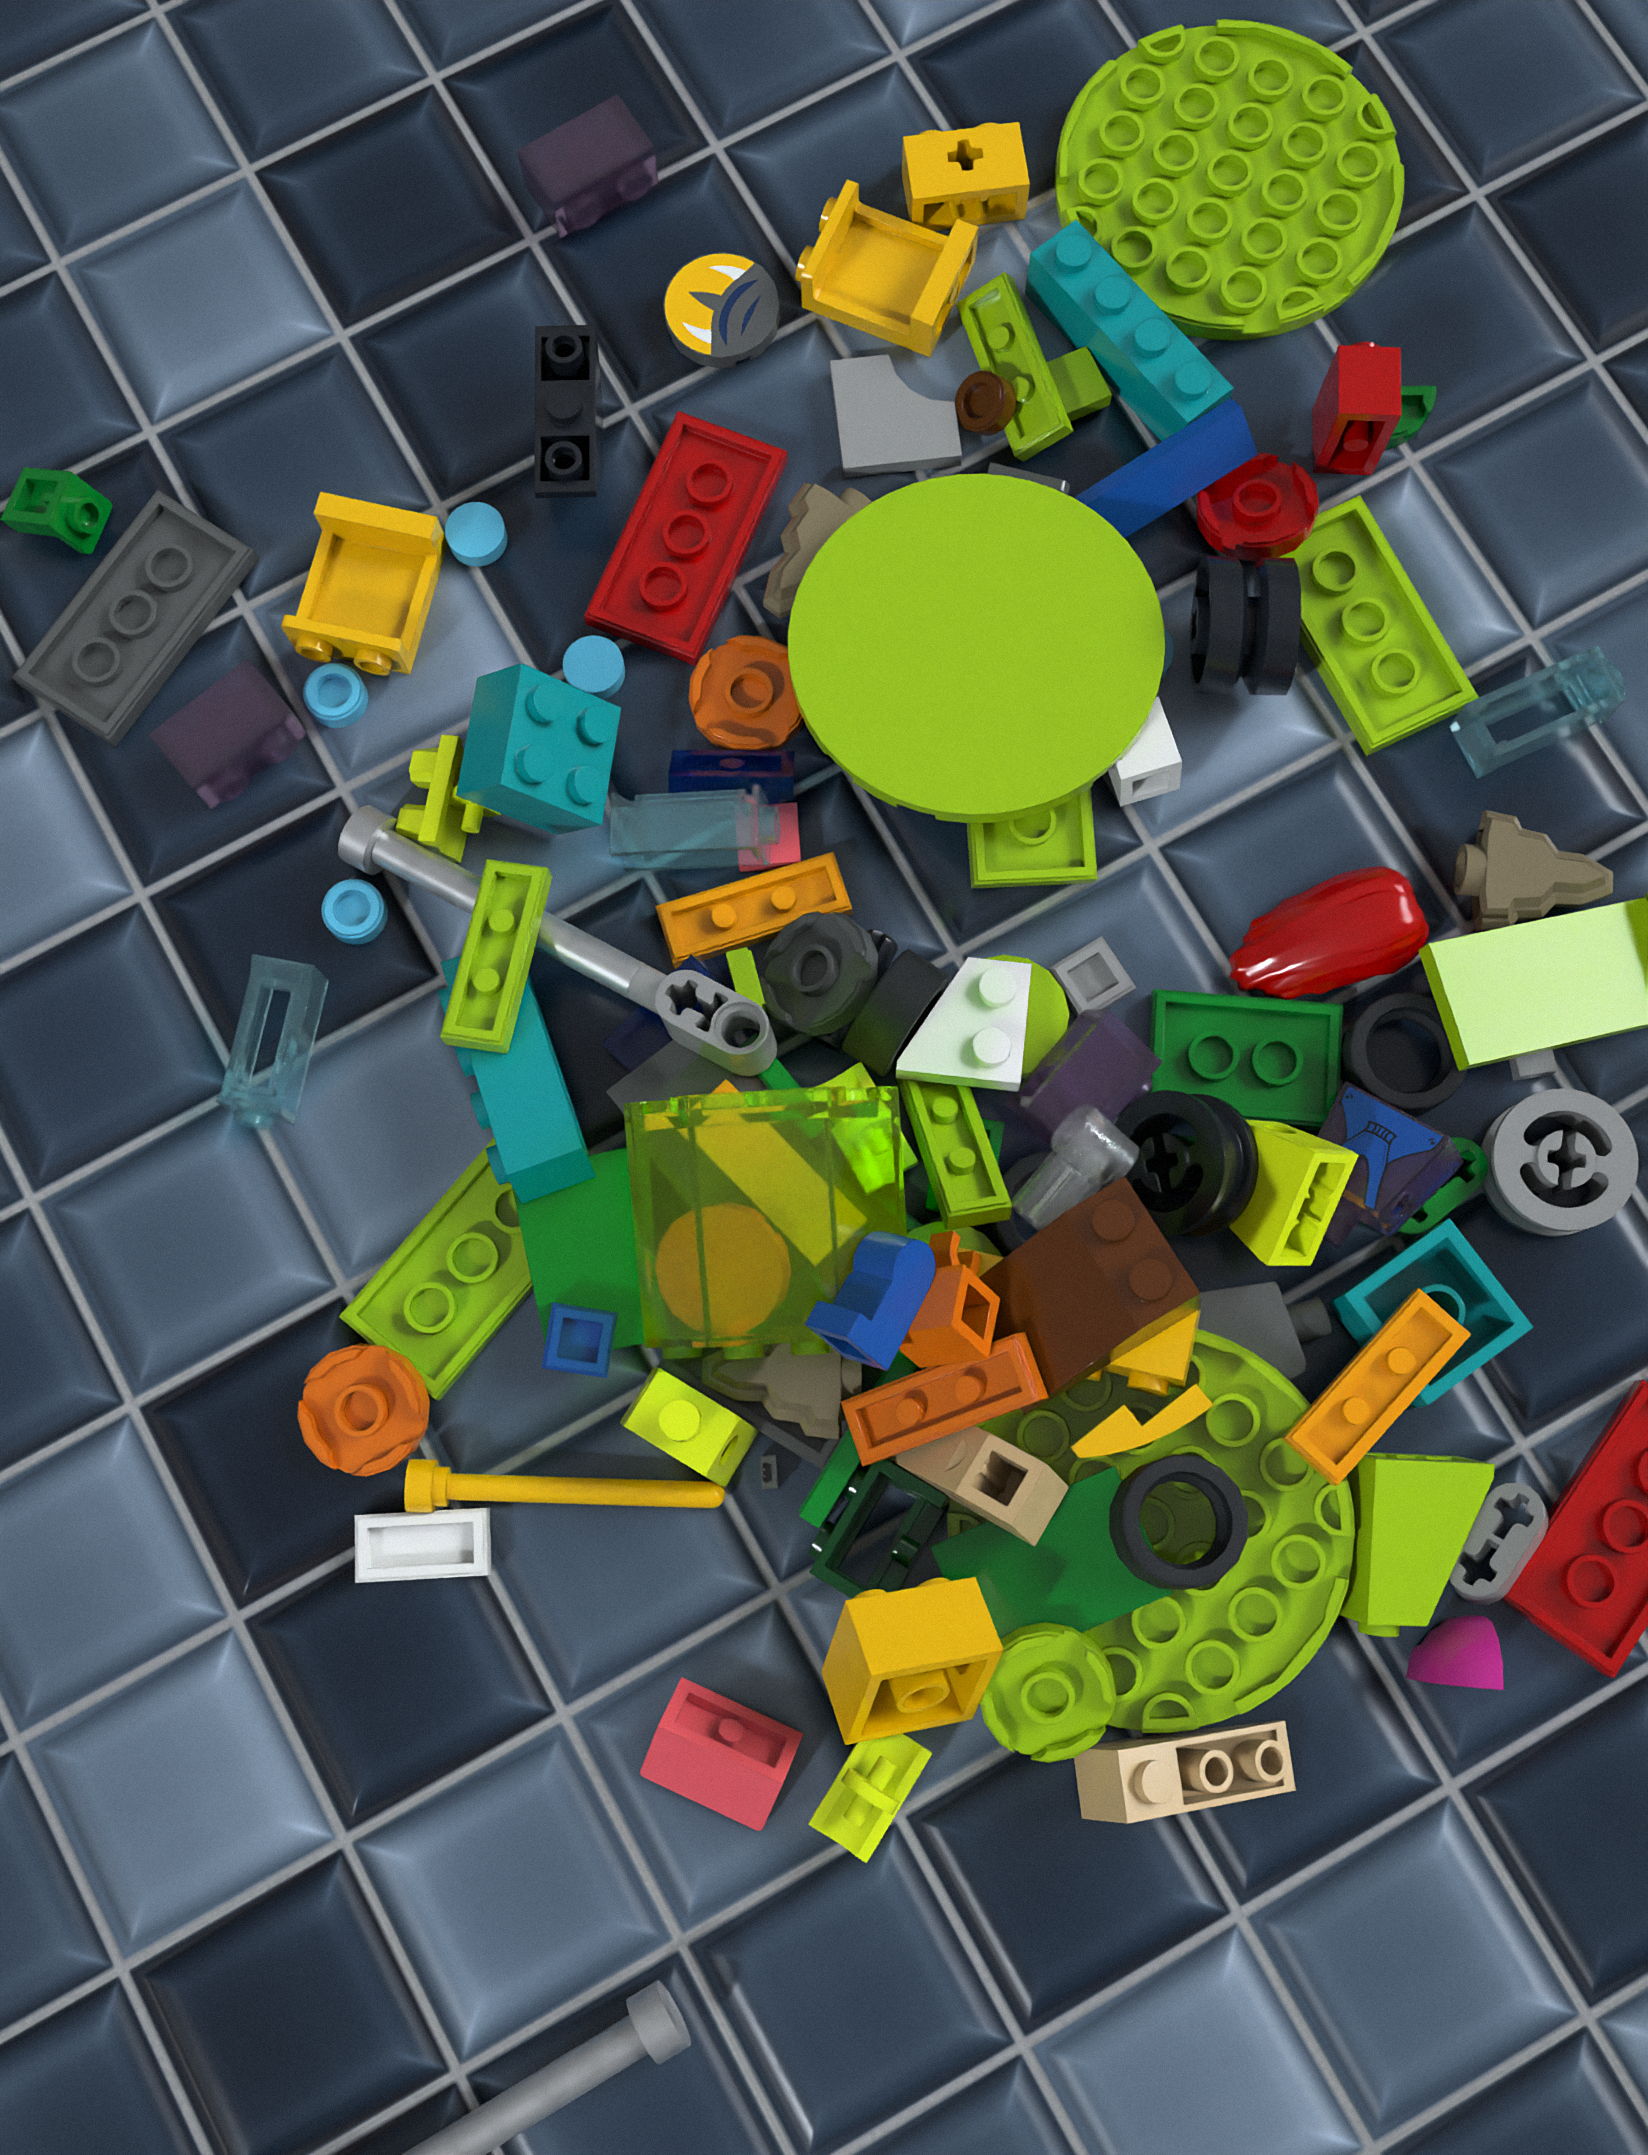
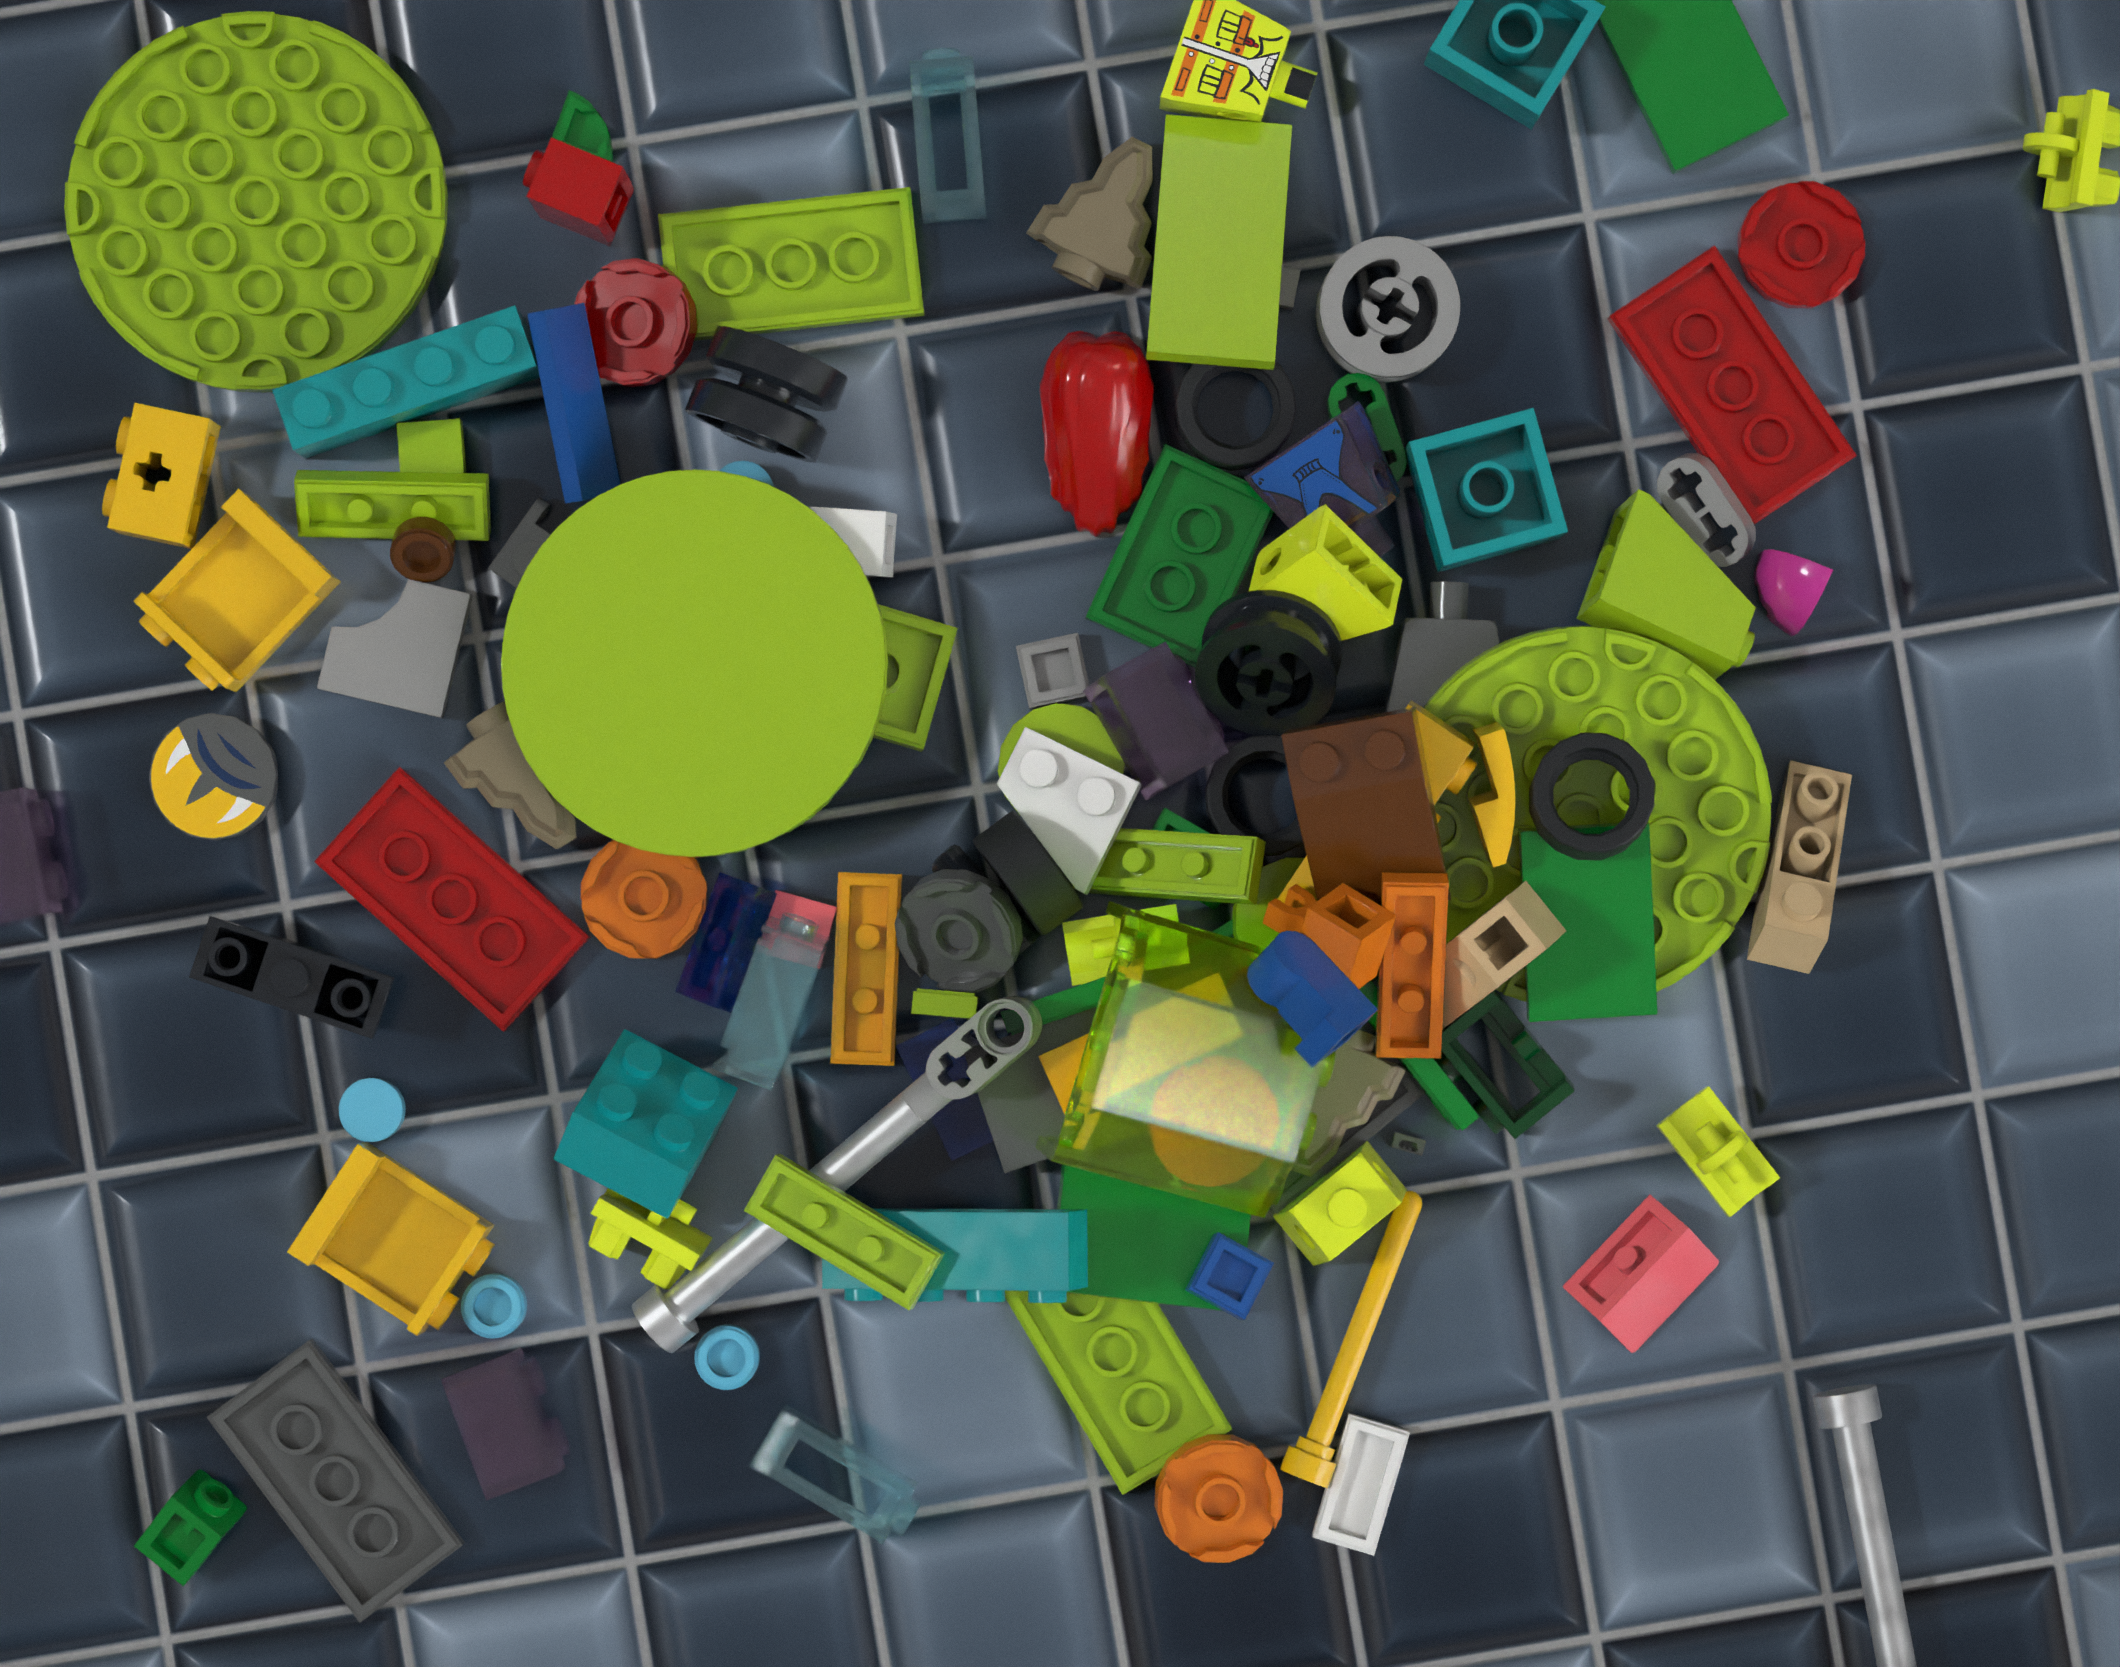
camera: 75 degrees left, 10 degrees up
(594, 666) = (559, 1039): medium azure tile -> none
(910, 1659) = (1623, 1076): yellow brick -> none
(1049, 1693) = (1692, 965): lime tile -> none
(1084, 1159) = (1235, 752): clear piece -> none
(1376, 1387) = (1536, 572): light orange tile -> none

